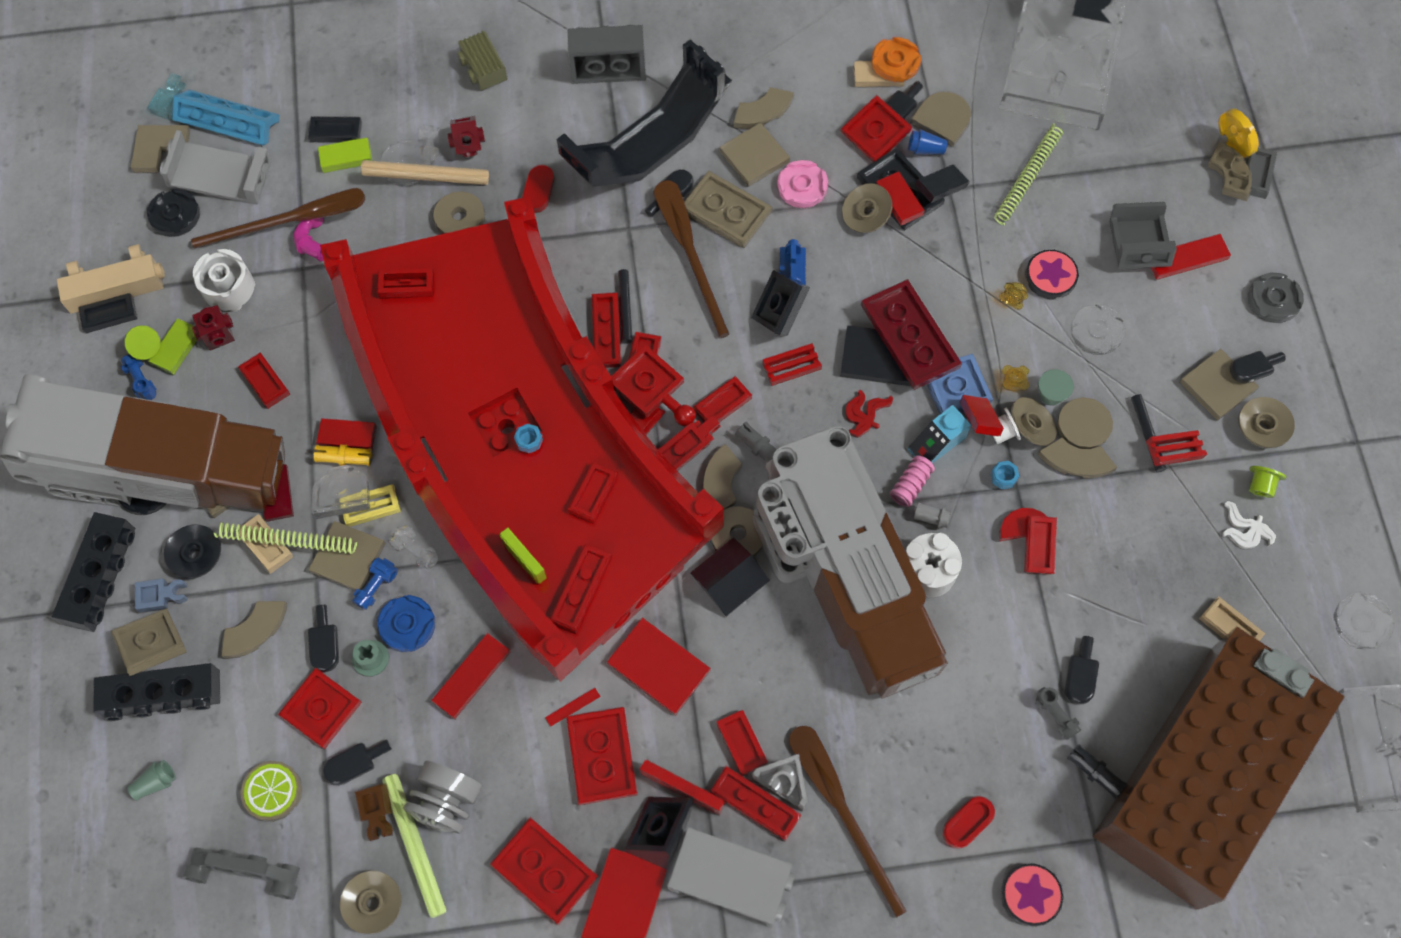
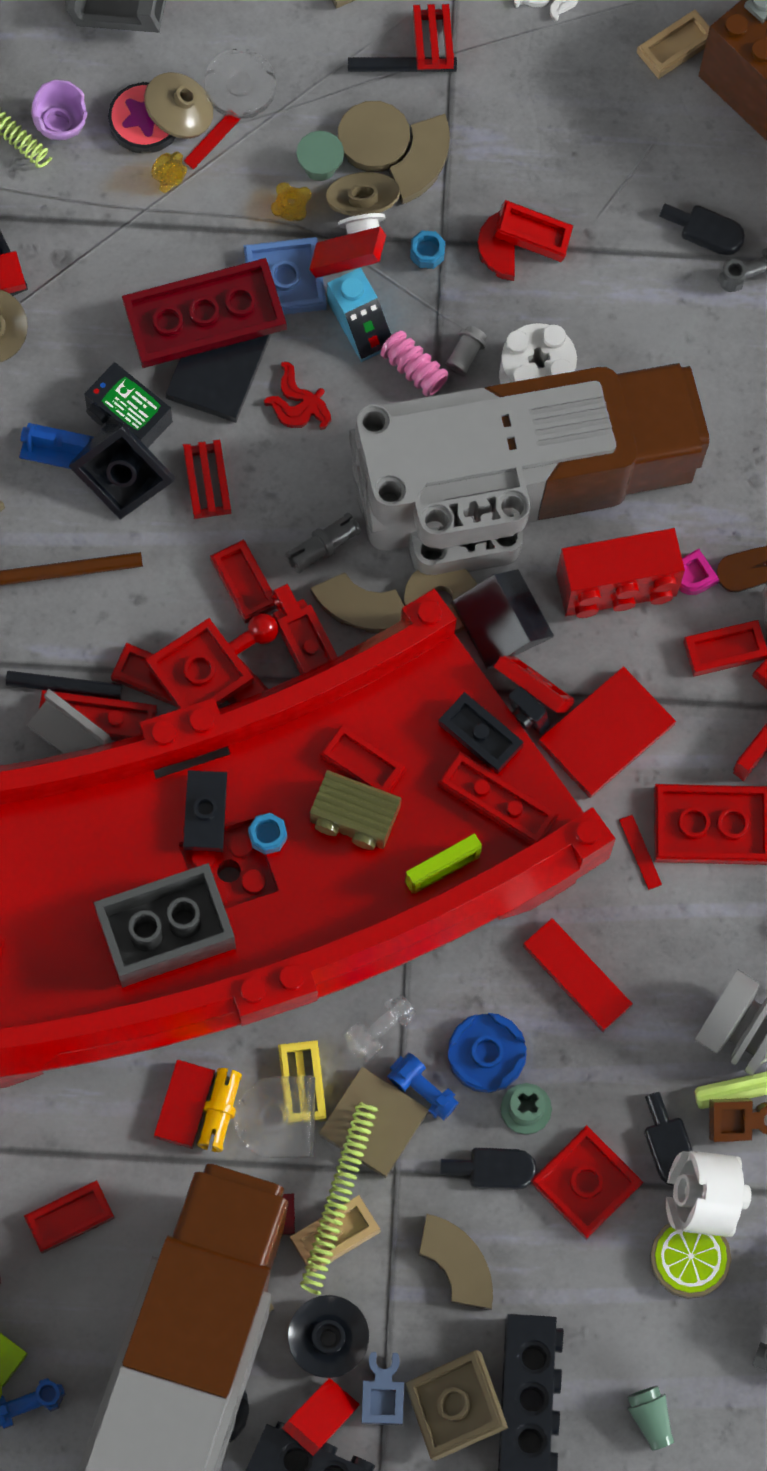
camera: 85 degrees left, 5 degrees up
(134, 554) = (321, 1416): none -> red tile
(308, 788) = (707, 1193): none -> white brick
(448, 382) = (165, 925): none -> dark grey brick
(539, 397) = (205, 811): none -> black plate
(553, 490) = (354, 811): none -> olive brick
(591, 308) = (65, 726): none -> light grey panel
(626, 565) = (480, 733): none -> black plate
(656, 601) = (529, 711): none -> black plate
(677, 602) = (535, 683): none -> red tile
(776, 648) = (620, 573): none -> red brick
(796, 709) = (697, 575): none -> dark pink tile
(829, 302) = (123, 399): none -> brick
(1037, 216) = (59, 110): none -> lavender hair
(1048, 320) = (210, 141): none -> red piece
(1055, 293) = (178, 105): none -> dark tan dish

